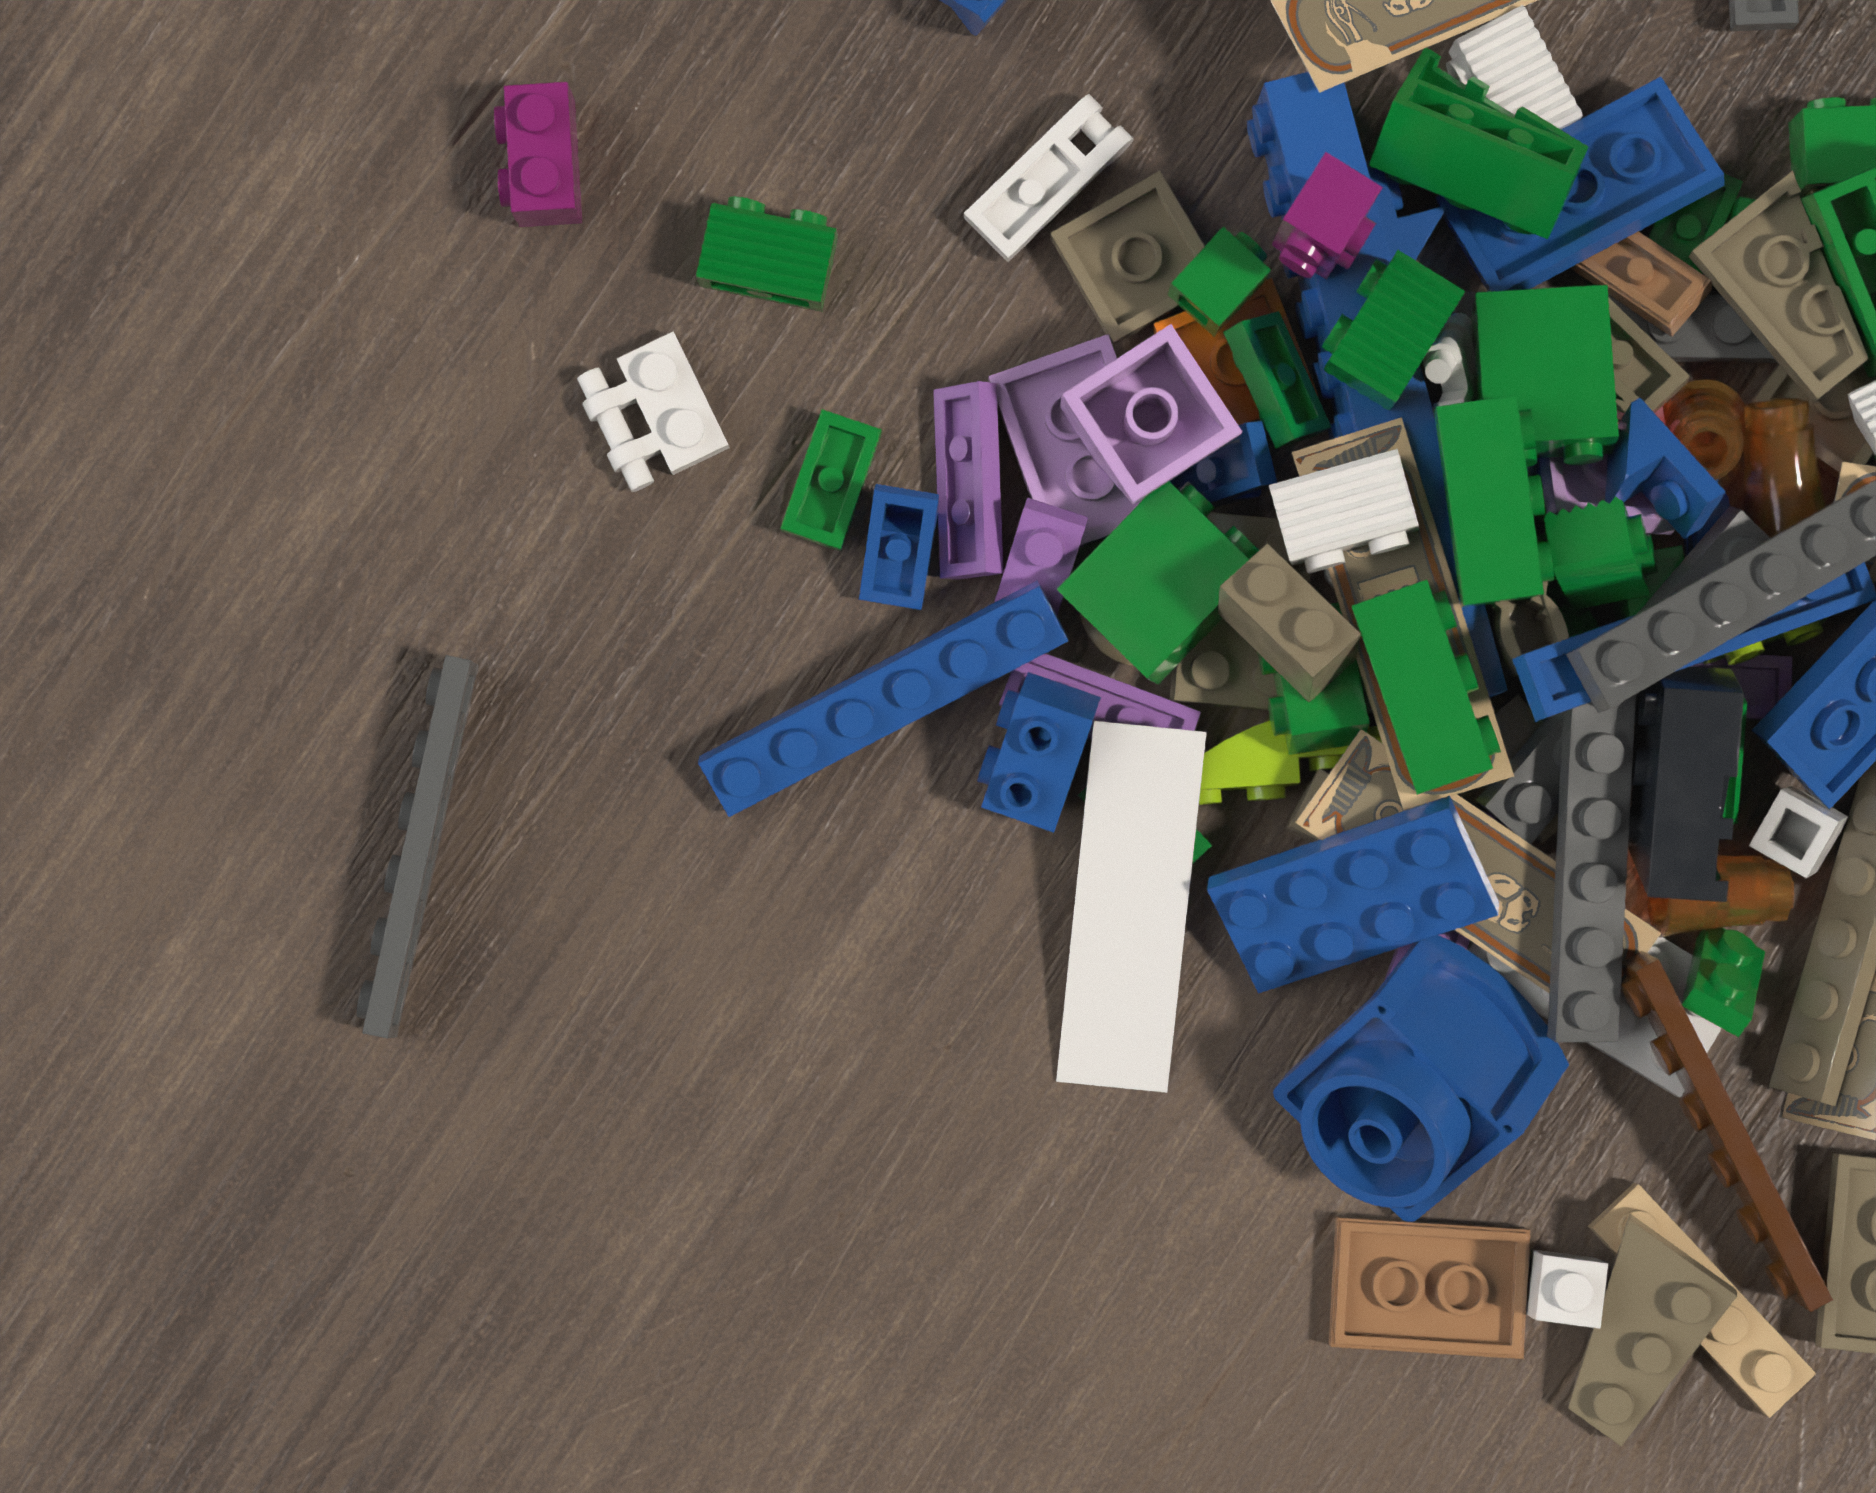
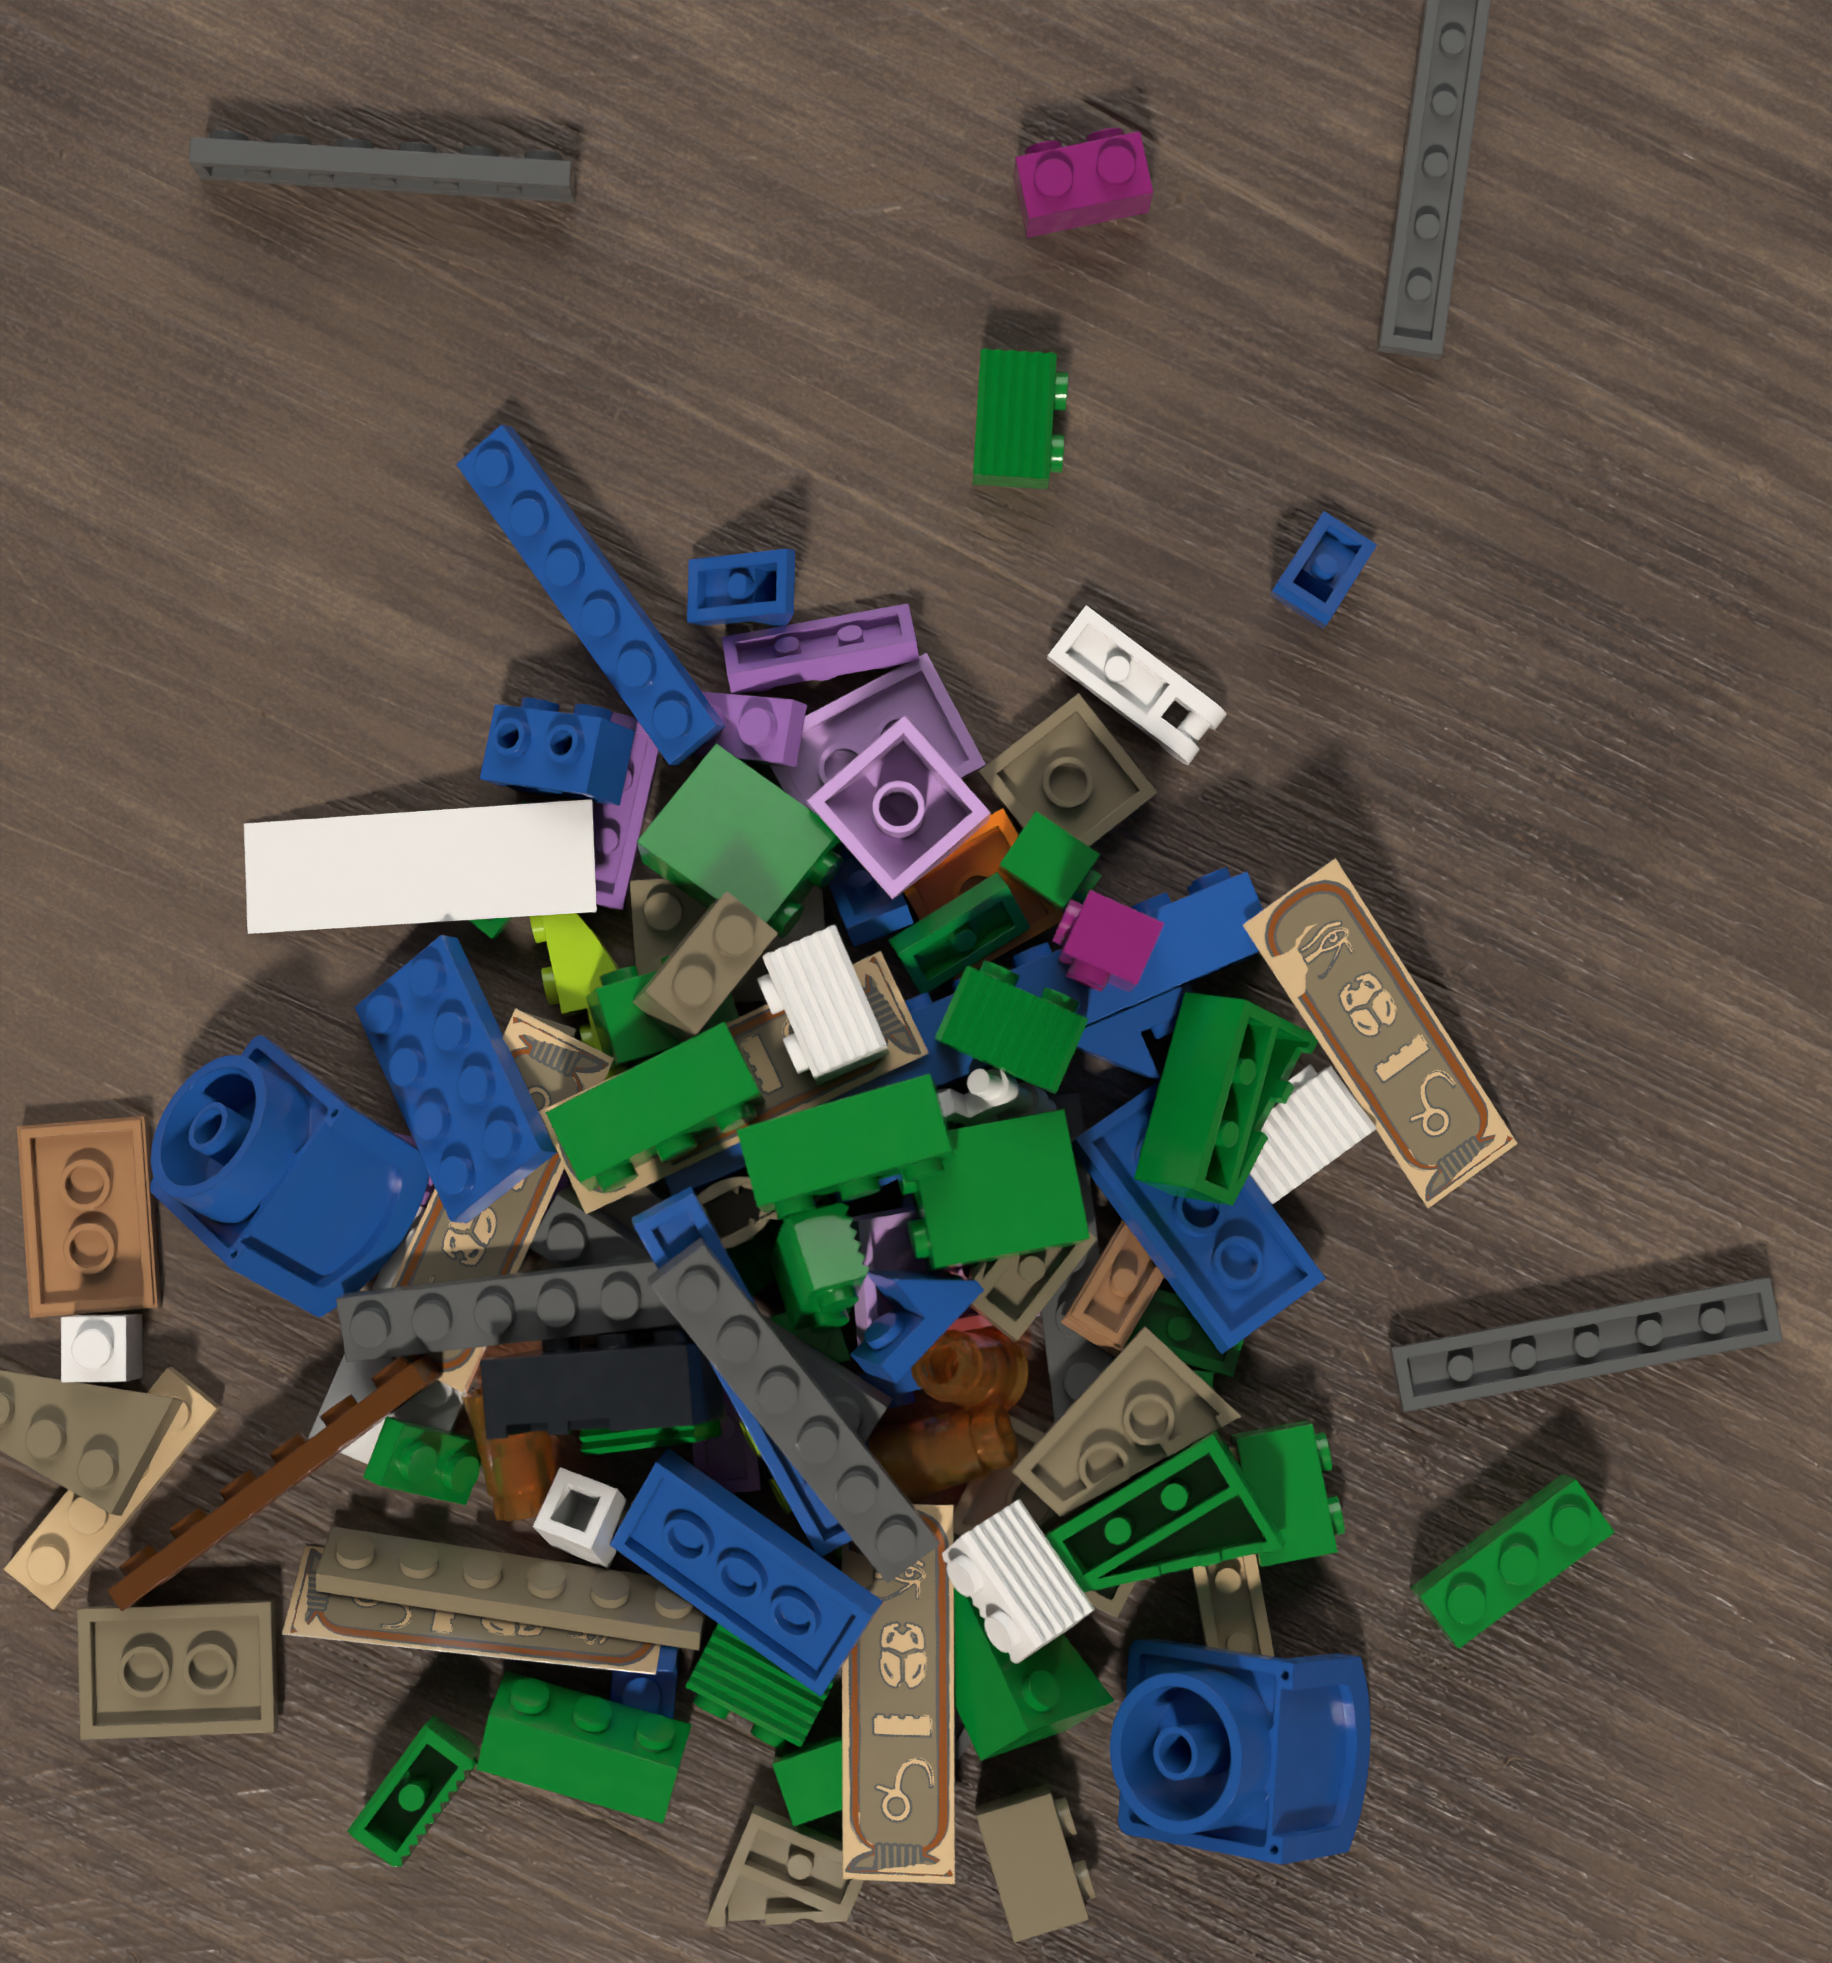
camera: 80 degrees right, 0 degrees up
(671, 404) = (857, 349): white plate -> none
(831, 480) = (802, 515): green plate -> none

